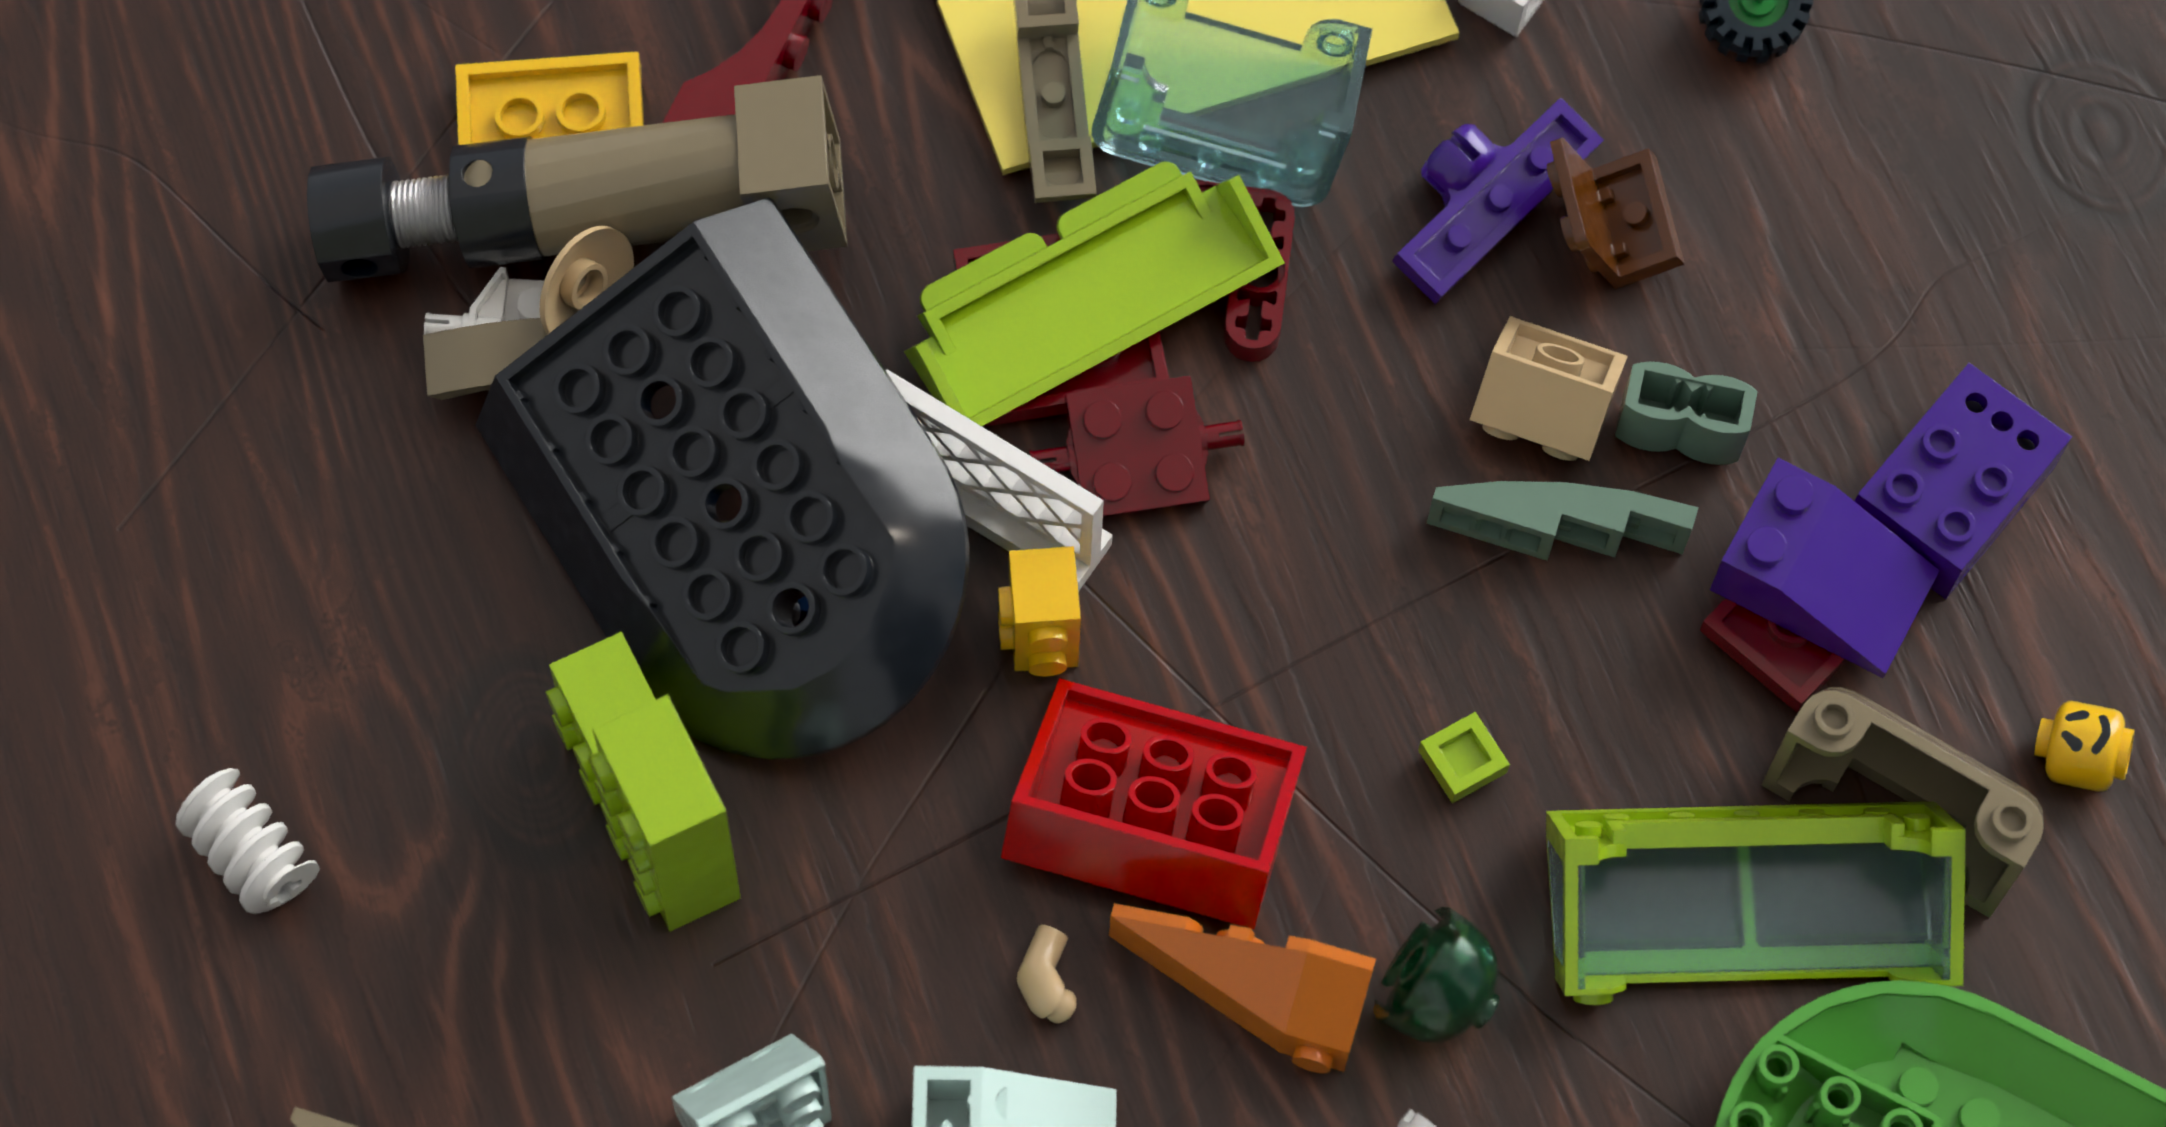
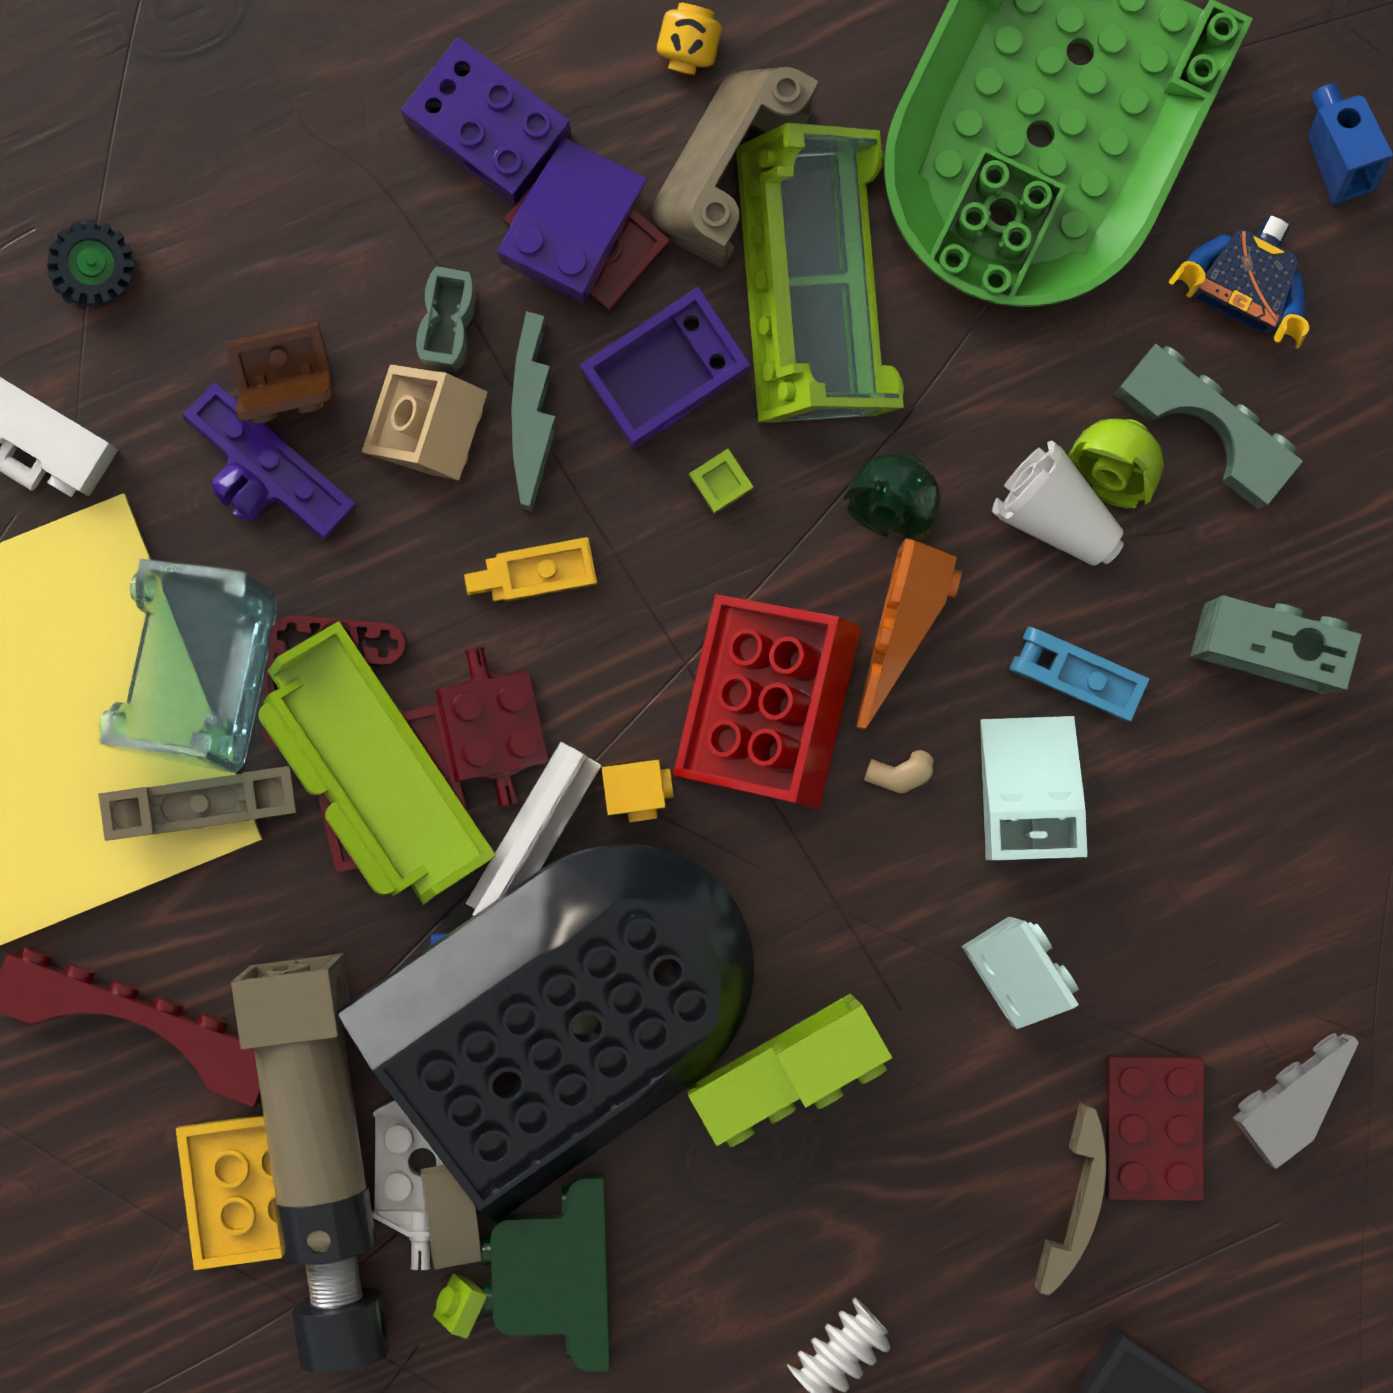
camera: 95 degrees left, 20 degrees up
(372, 368) = (459, 1305): none -> lime plate
(398, 492) = (555, 1273): none -> dark green brick
(583, 272) = (397, 1149): tan dish -> none
(1344, 515) = (535, 571): none -> yellow hinge
(1619, 683) = (664, 369): none -> dark purple piece

